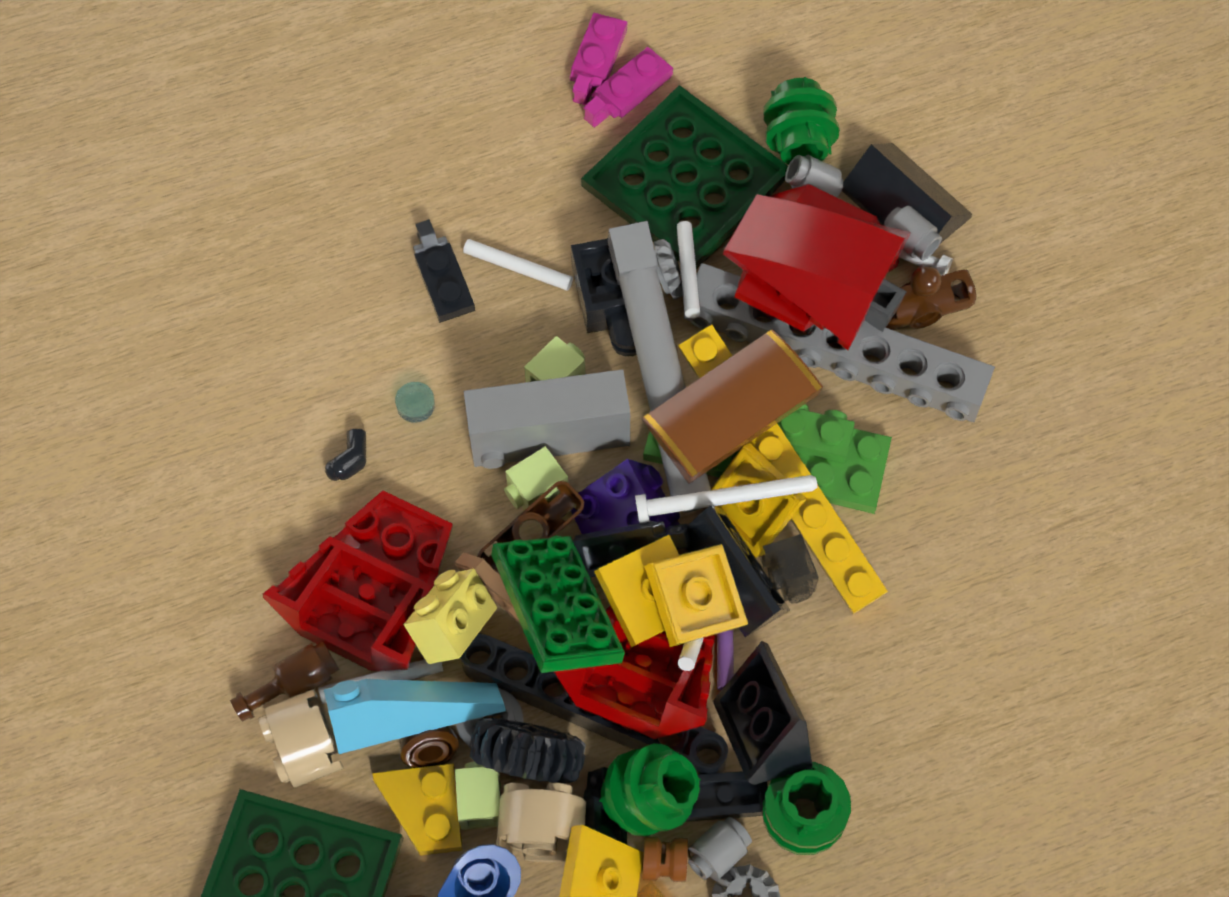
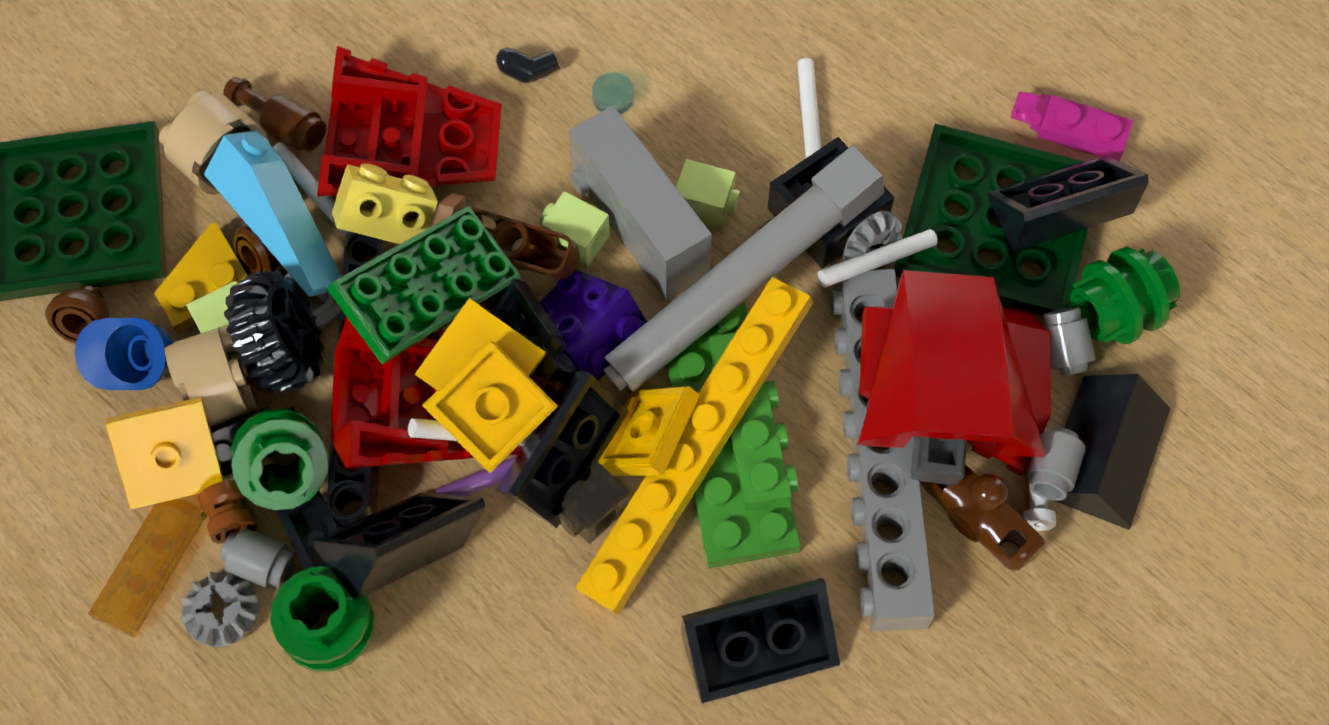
camera: 65 degrees right, 0 degrees up
(441, 274) = (761, 55): black hinge -> none
(596, 55) = (1094, 80): dark pink hinge -> none
(699, 119) = (1067, 201): none -> black slope
(723, 496) = (572, 324): white bar -> none
(732, 405) = (725, 353): dark orange slope -> none
(956, 498) = (760, 640): none -> black slope

